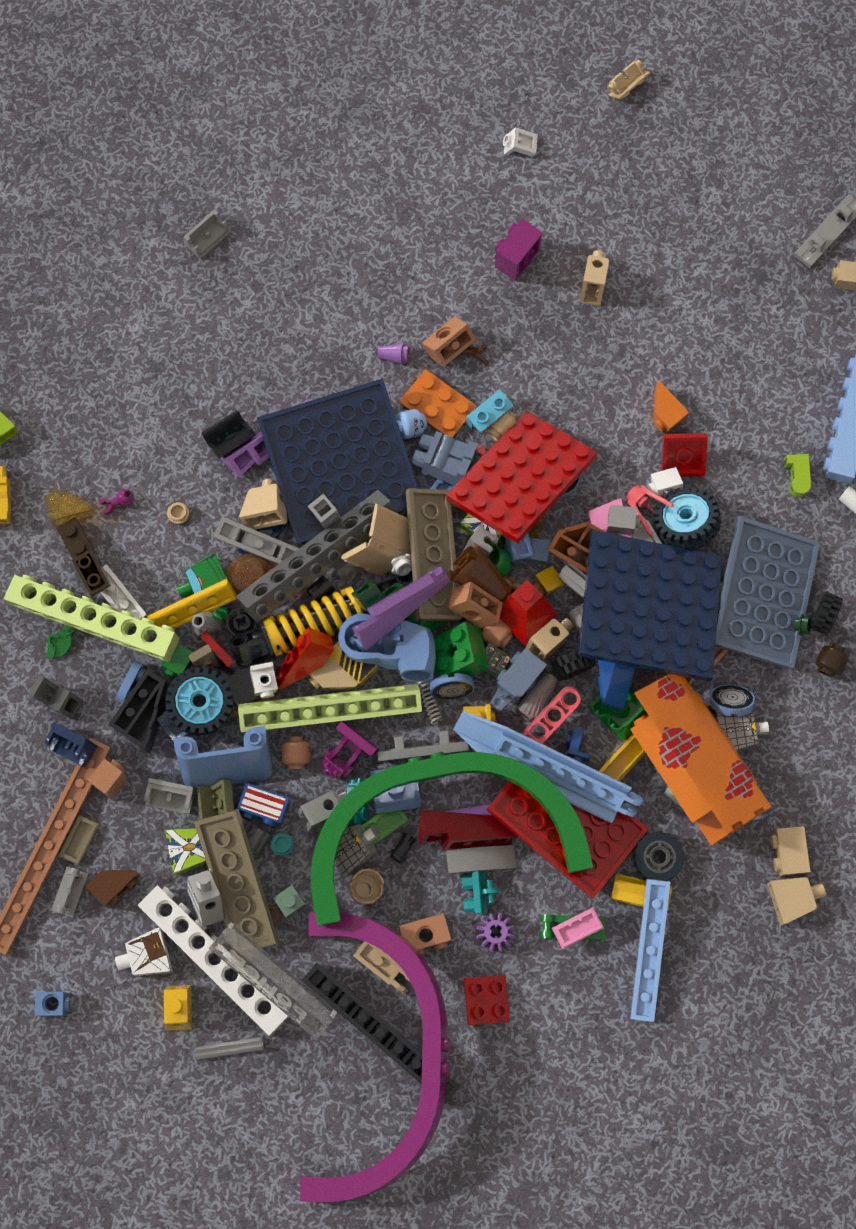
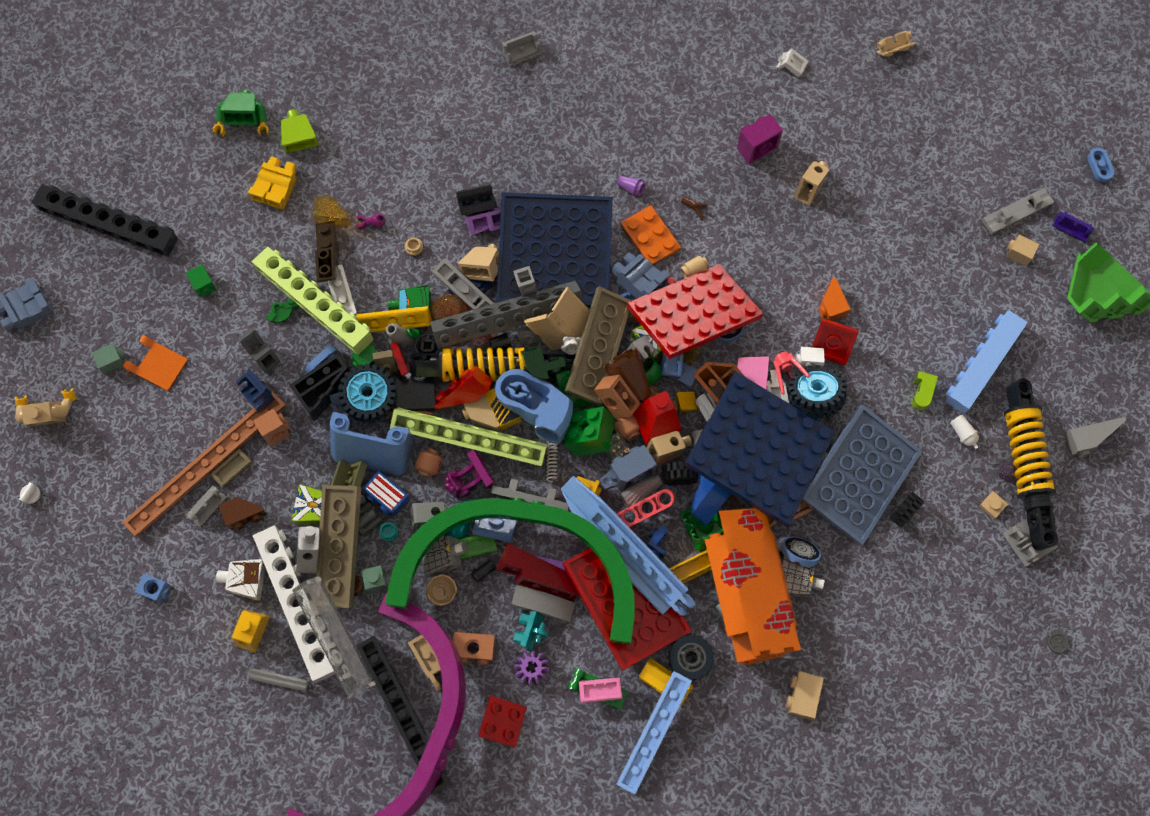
camera: 20 degrees right, 5 degrees down
(169, 796) = (315, 459): light grey hinge -> none
(263, 670) = (426, 387): white brick -> none
(398, 606) = (554, 373): medium lavender wedge -> none
(411, 423) = (622, 241): light blue head -> none
(449, 341) = (677, 189): nougat brick -> none
(452, 687) = (574, 456): tile -> none
(489, 412) = (688, 253): medium azure bracket -> none
(622, 520) = (763, 373): light grey brick -> none
(794, 897) = (793, 735): tan torso -> none
(803, 625) = (883, 511): dark green plate -> none
(831, 660) = (897, 550): dark brown head -> none

